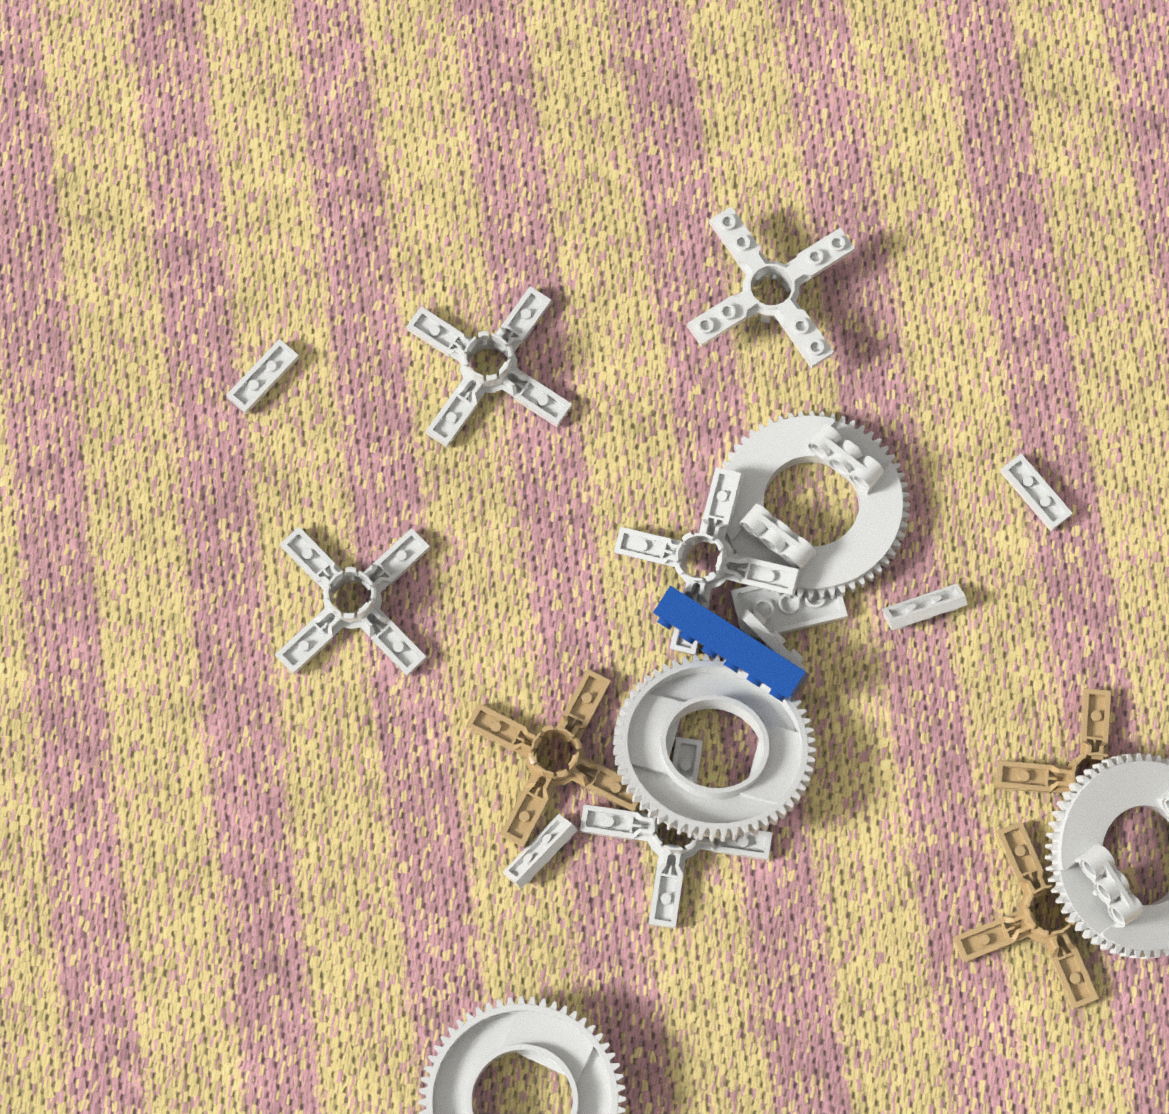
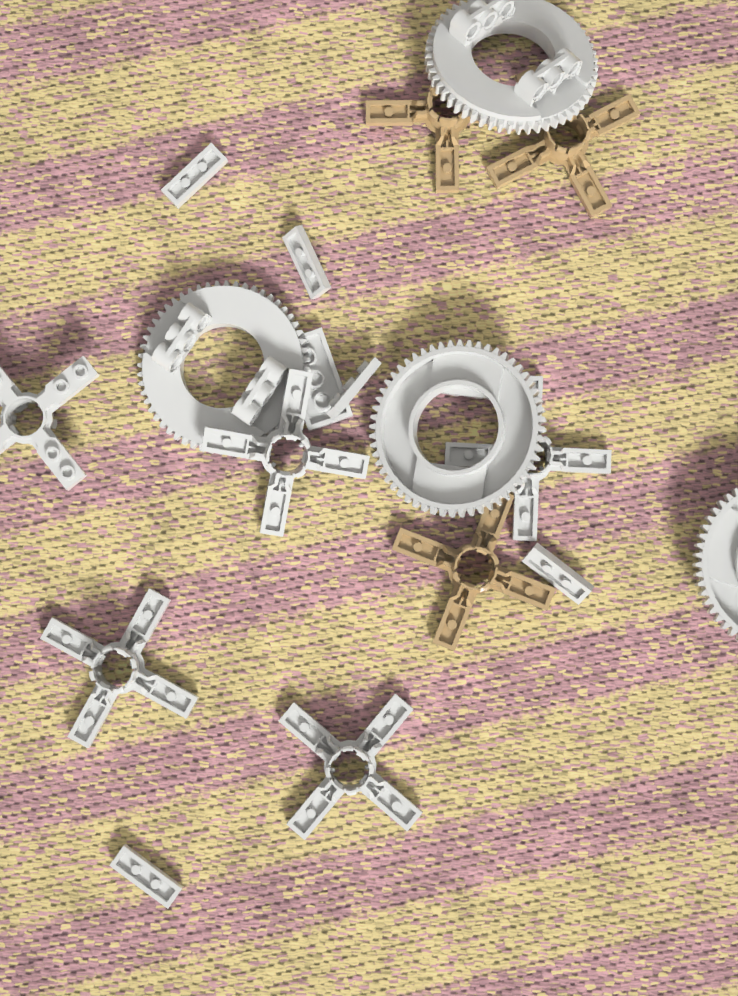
camera: 95 degrees left, 10 degrees up
(731, 644) = (362, 422): blue brick -> none

